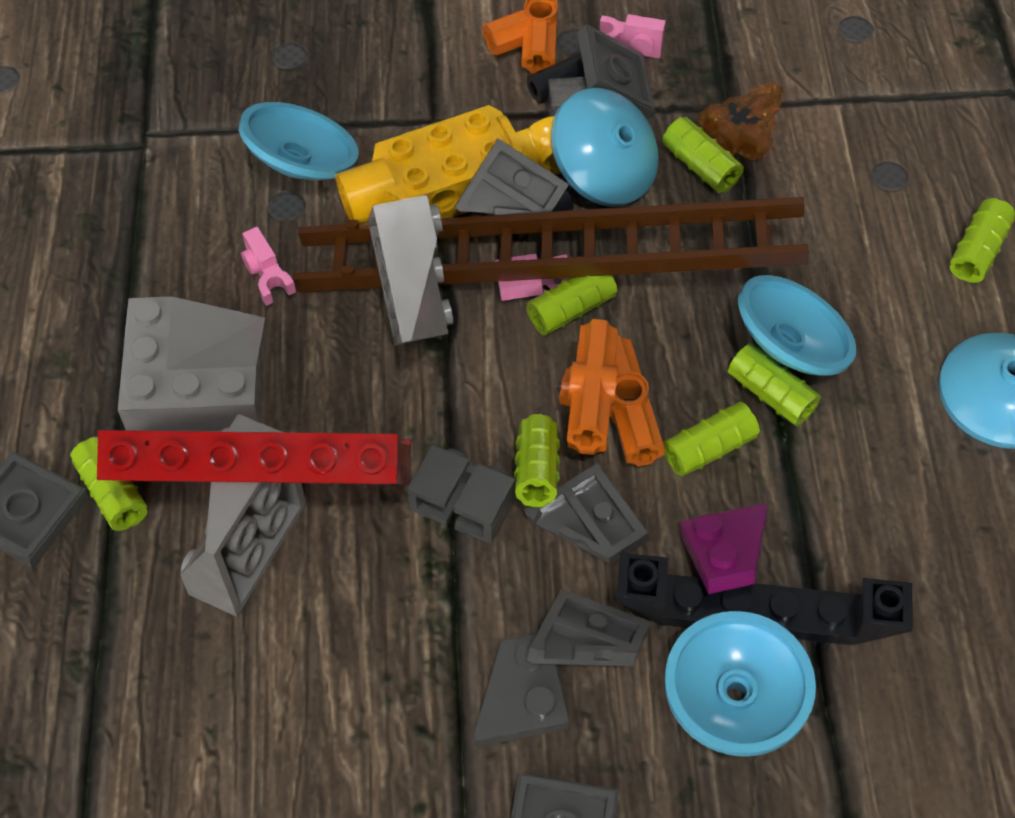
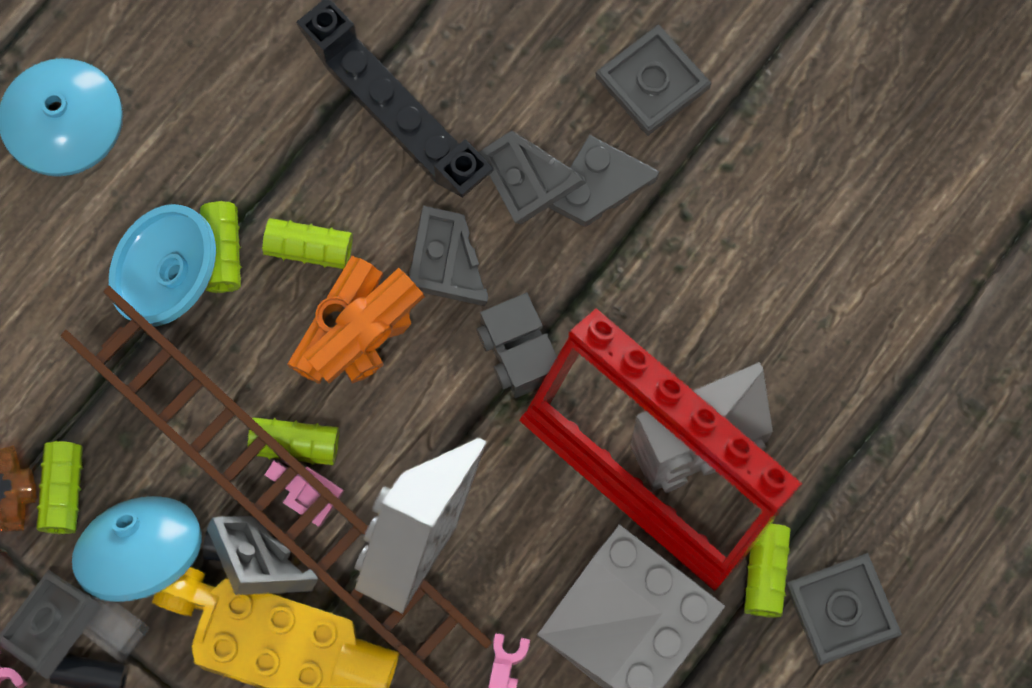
camera: 140 degrees left, 15 degrees up
(537, 461) = (447, 321): lime axle -> none
(726, 546) = (378, 158): magenta wing -> none
(745, 655) = (461, 37): medium azure dish -> none

